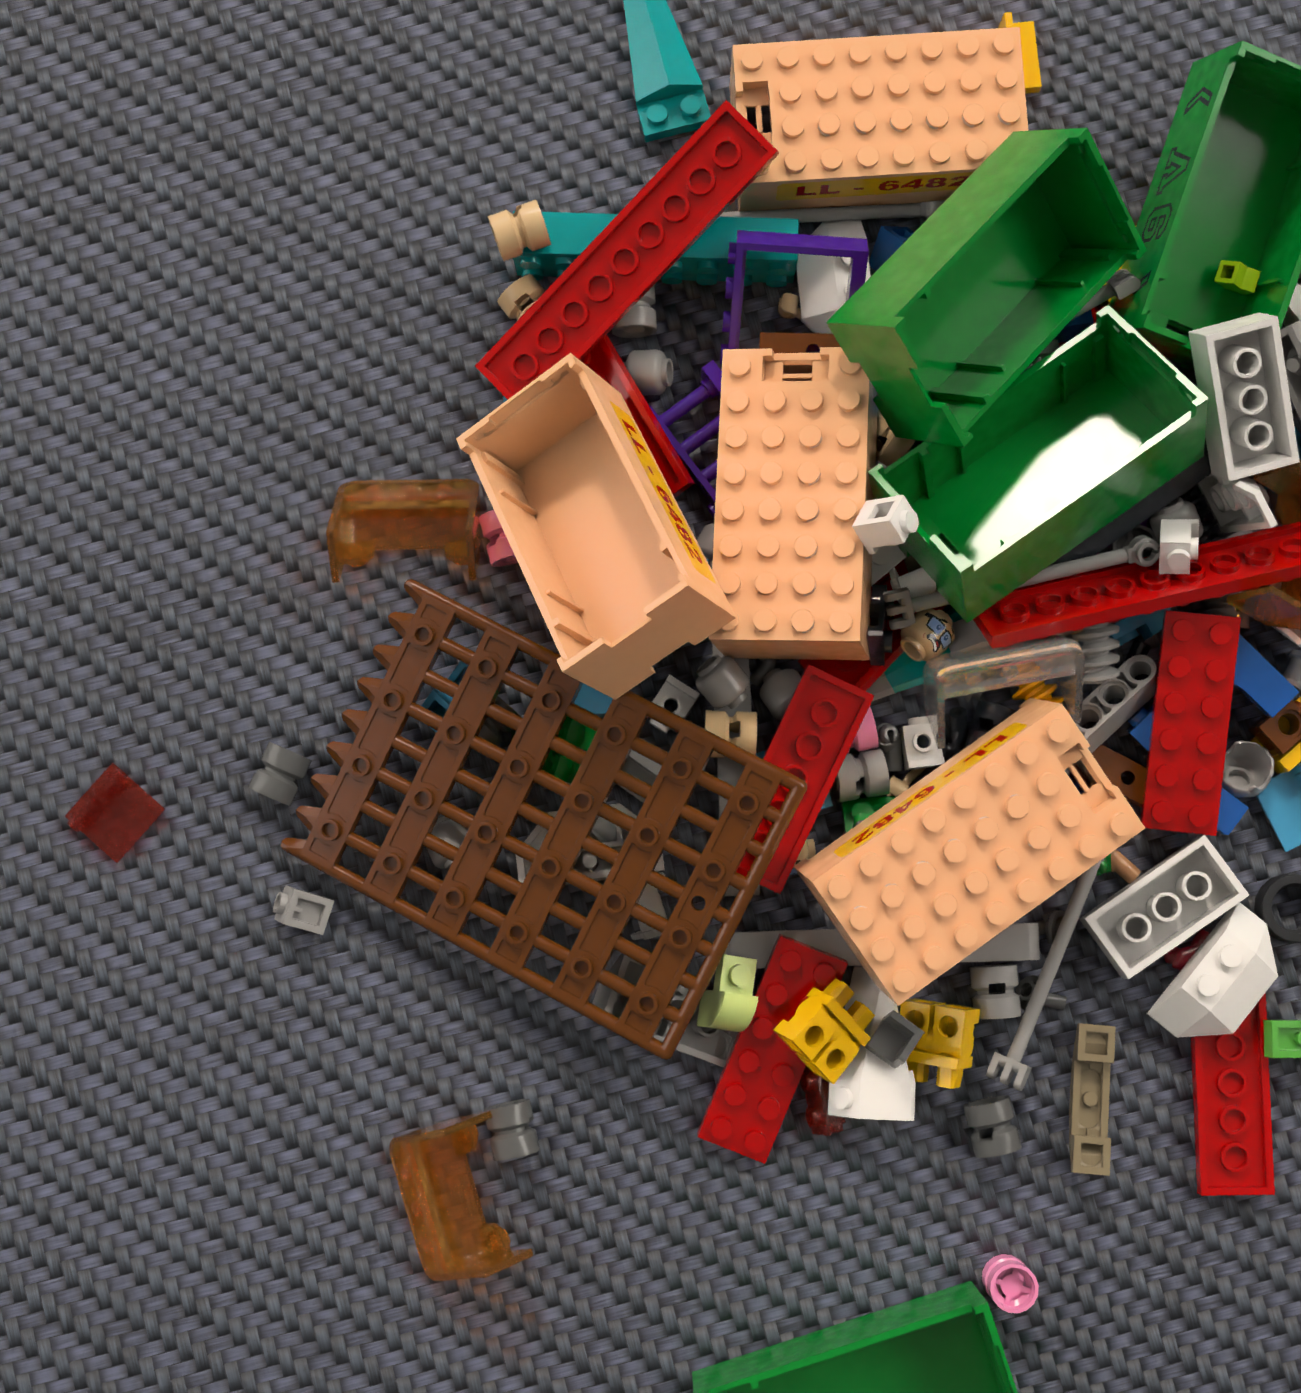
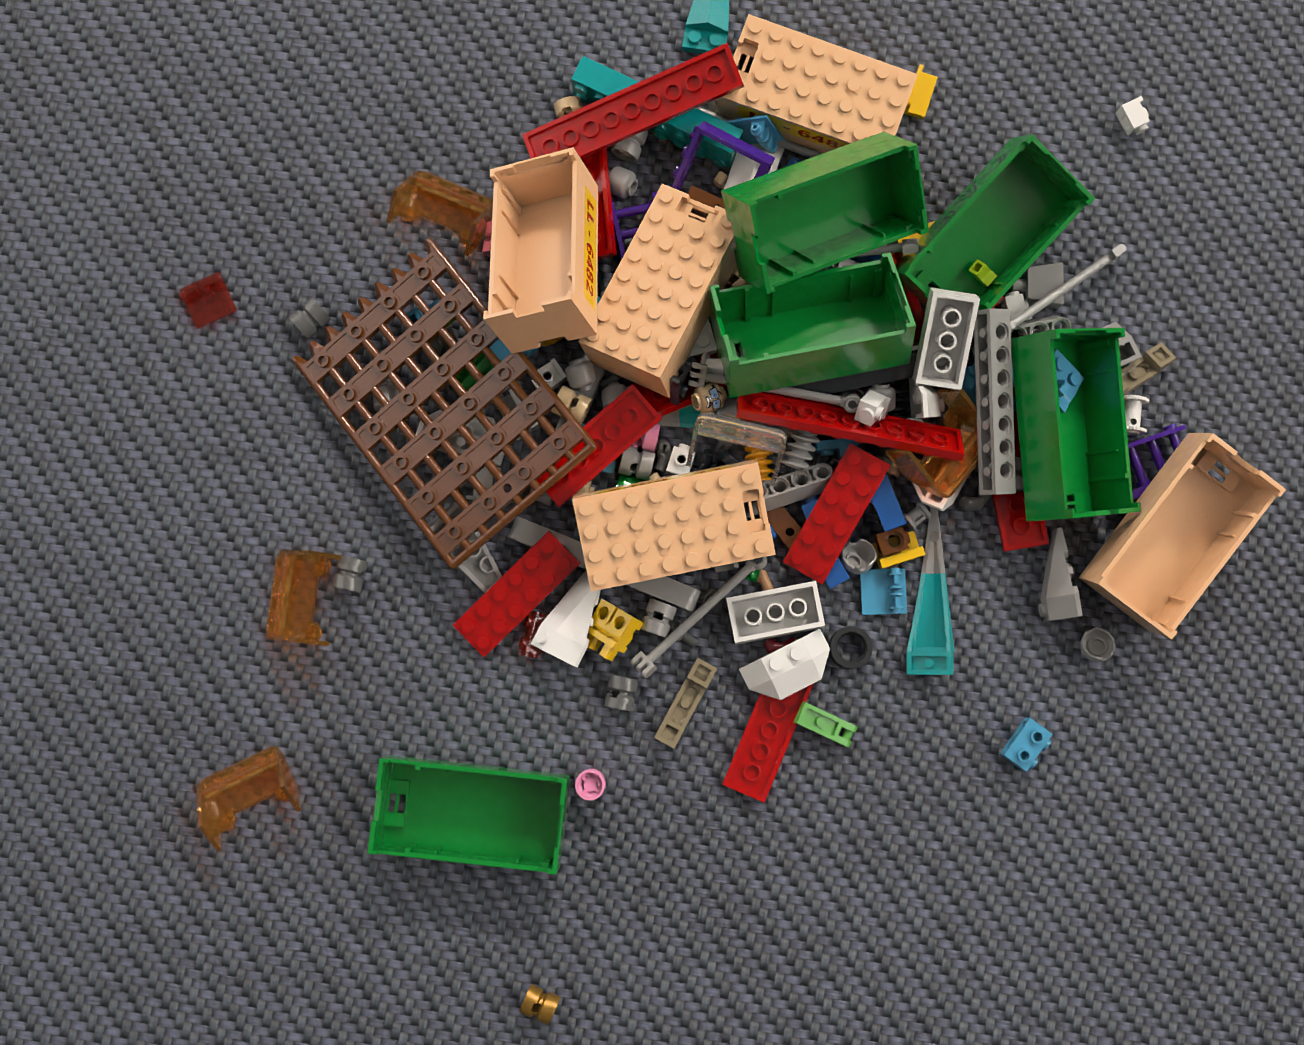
camera: 20 degrees right, 0 degrees up
(302, 909) = (288, 400): light grey bracket -> none
(519, 230) = (579, 67): tan wheel -> none
(731, 1000) = (505, 554): yellowish green brick -> none
(820, 208) = (759, 131): none -> dark azure hinge
(826, 1033) = (548, 595): yellow hips -> none
(885, 522) = (704, 317): white brick -> none
(894, 1039) = (585, 616): dark grey panel -> none

